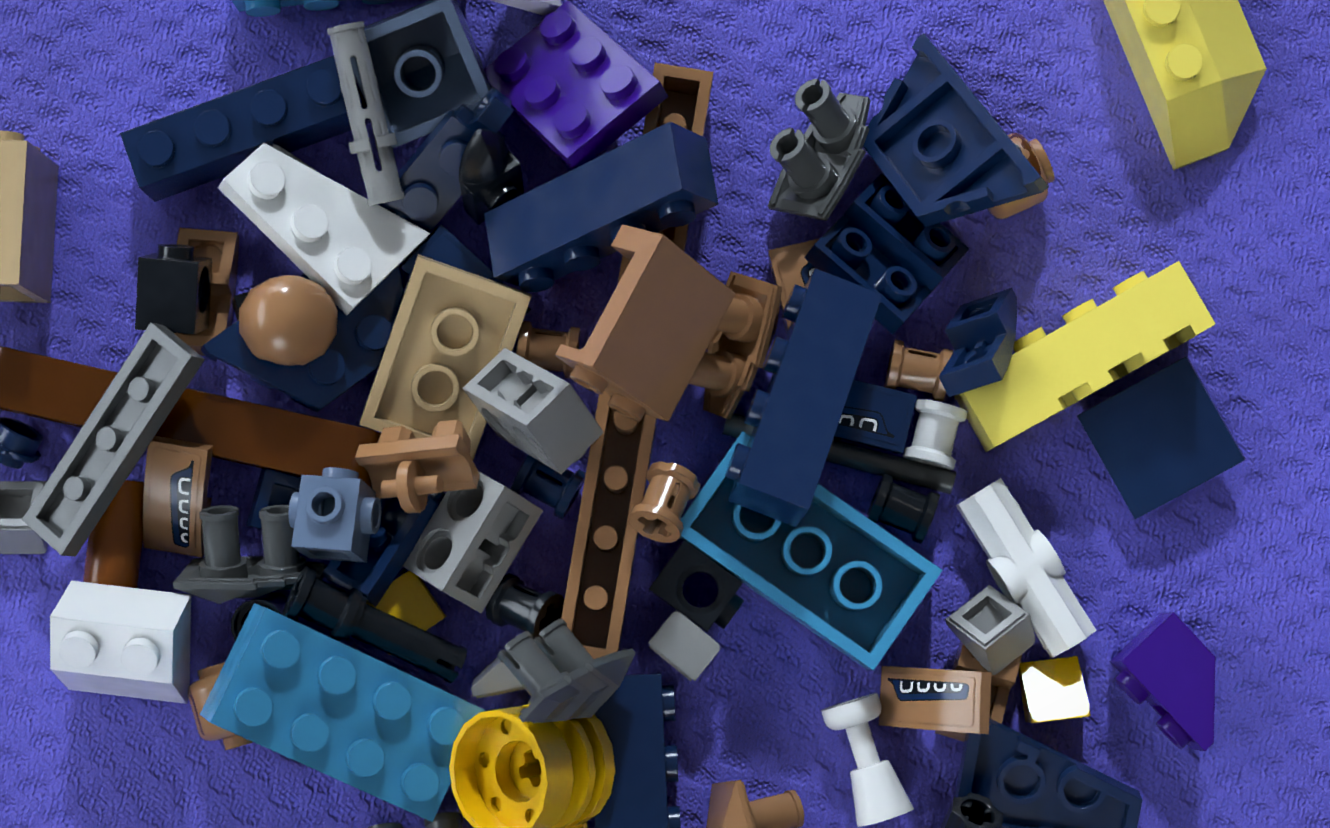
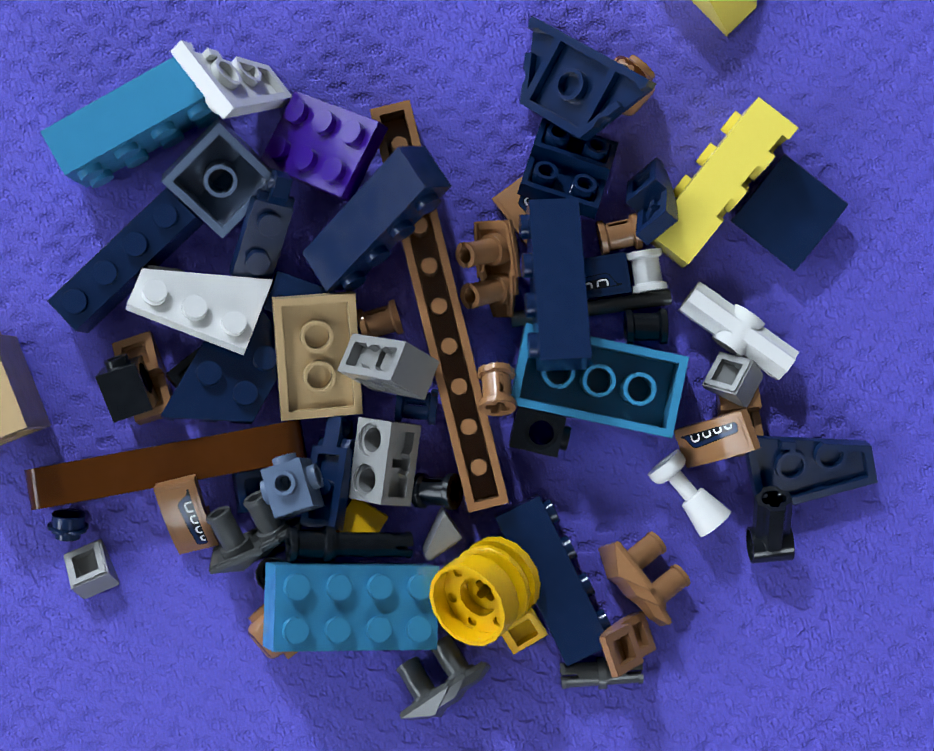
camera: 25 degrees left, 5 degrees up
(113, 439) = (131, 497): plate -> none
(117, 540) = (159, 559): dark orange piece -> none
(122, 641) = (193, 619): white slope -> none
(288, 320) = (208, 375): medium nougat hair -> none
(348, 42) = (230, 262): light grey pin -> none
(419, 466) = (331, 434): medium nougat hips -> none
(488, 174) = (294, 227): black plate -> none
(562, 674) = (480, 526): dark grey connector -> none
(650, 328) = (442, 283): medium nougat panel -> none
(684, 645) = (546, 472): light grey slope -> none
(825, 157) = (503, 122): dark grey connector -> none
(1053, 690) = (787, 400): slope -> none
(1175, 677) = (859, 359): dark purple slope -> none

